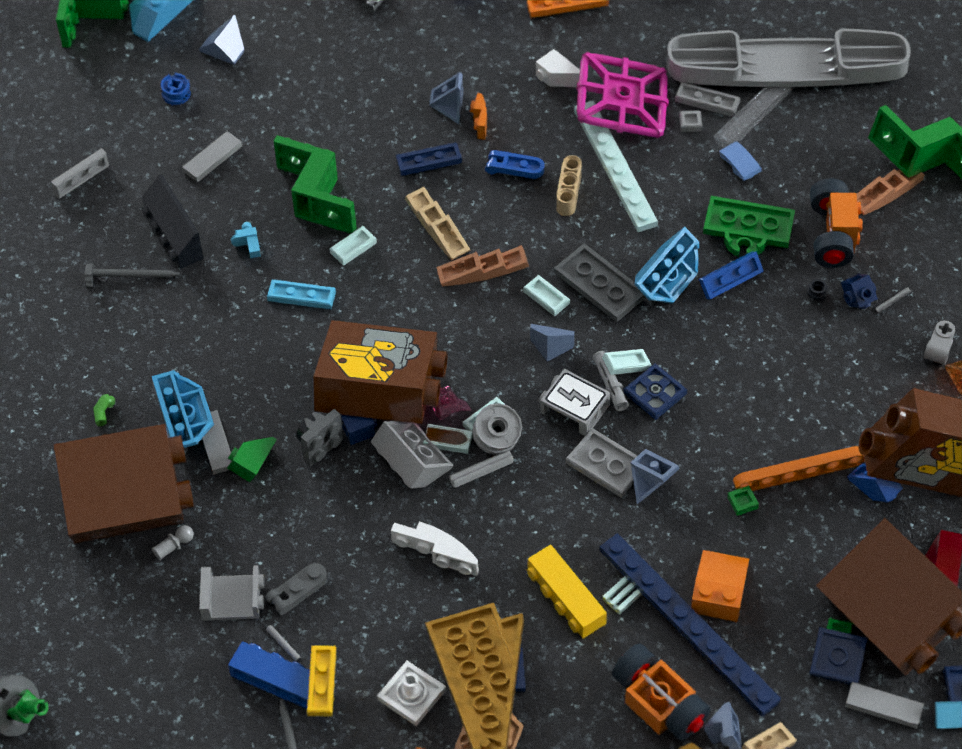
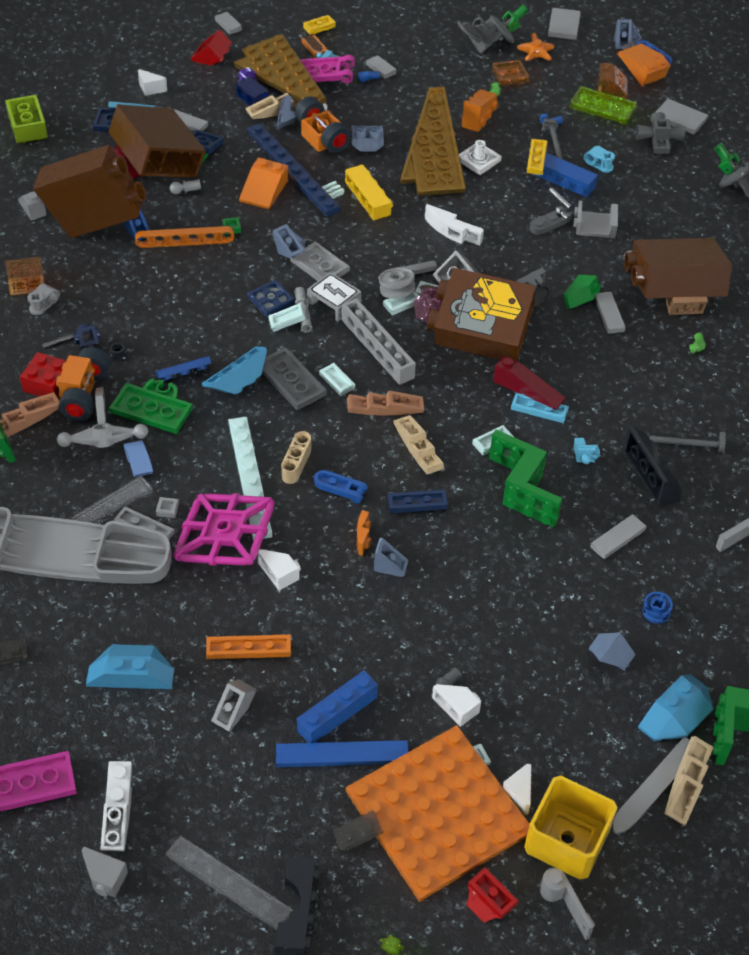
camera: 175 degrees left, 5 degrees down
(183, 407) = (634, 317): dark azure wedge -> none
(226, 723) = (600, 159): none -> medium azure piece
(313, 310) = (524, 381): none -> dark red wedge
(506, 336) = (378, 341): none -> light grey brick
(551, 341) = (341, 336): sand blue slope -> none
(591, 710) = (367, 137): none -> sand blue slope
(792, 184) = (103, 433): none -> light grey piece
(826, 564) = (176, 187): none -> light grey pin
(883, 236) = (41, 375): none -> red brick

